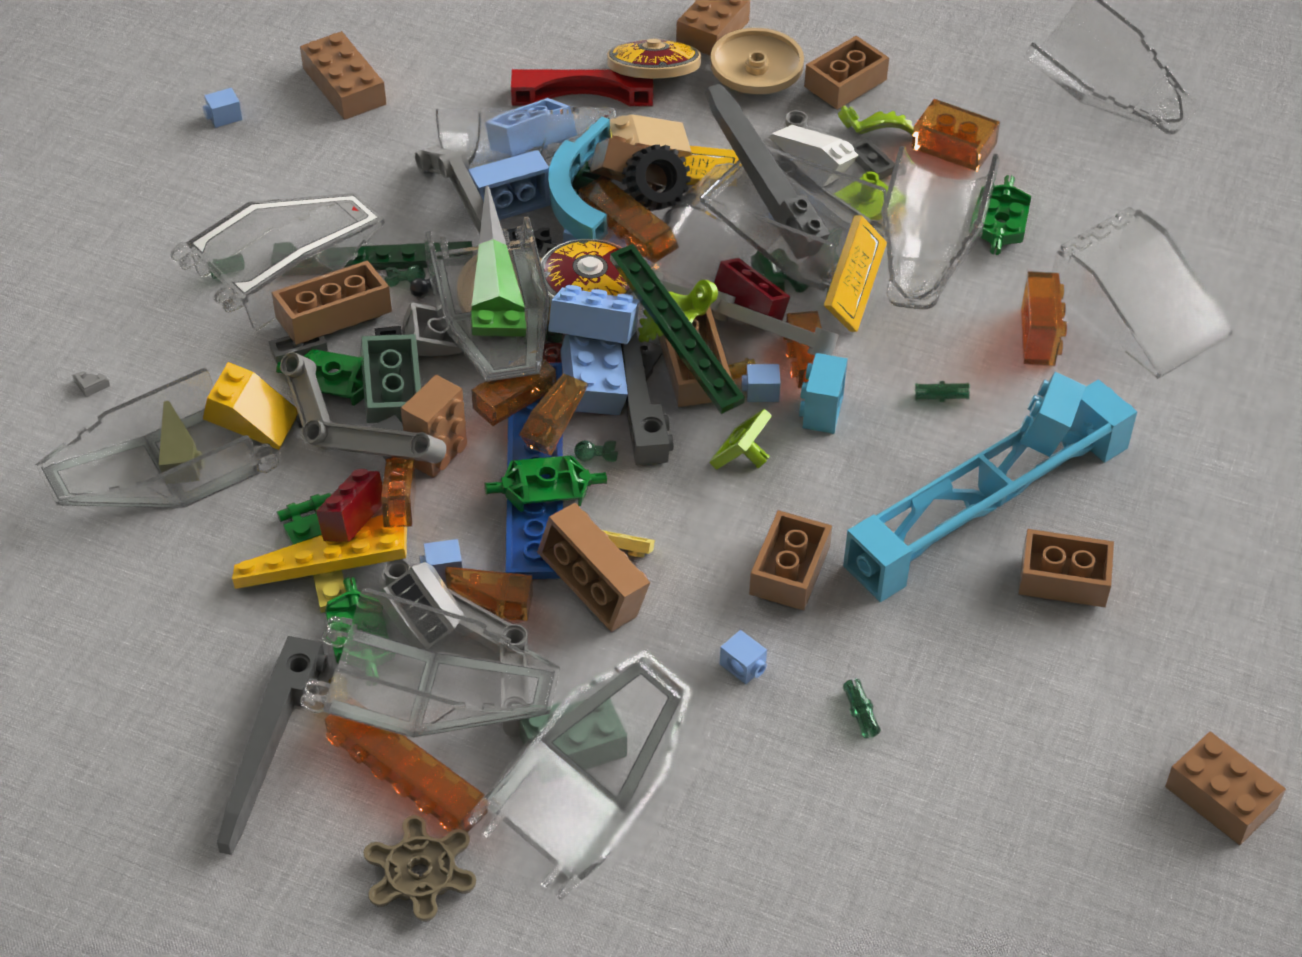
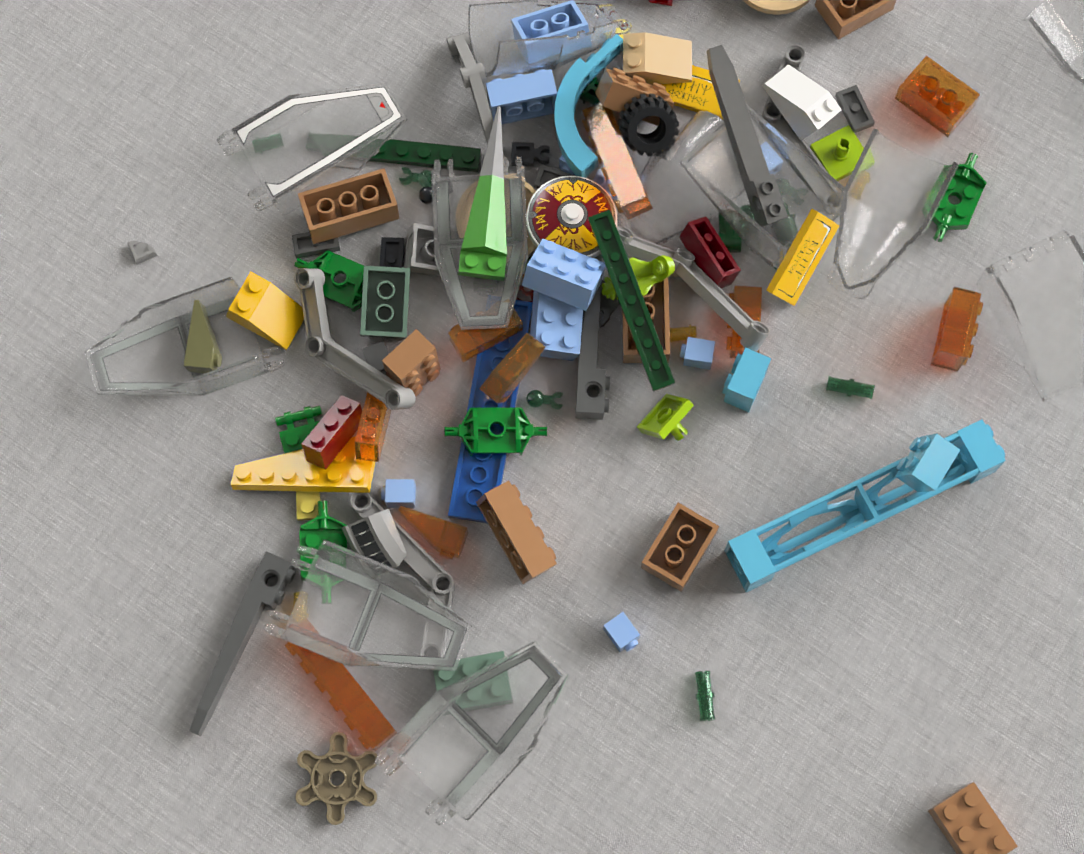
camera: 15 degrees right, 25 degrees up
(635, 545) = (549, 500): light yellow plate -> none
(876, 121) = (869, 64): lime plant -> none
(1066, 568) = (904, 596): medium nougat brick -> none

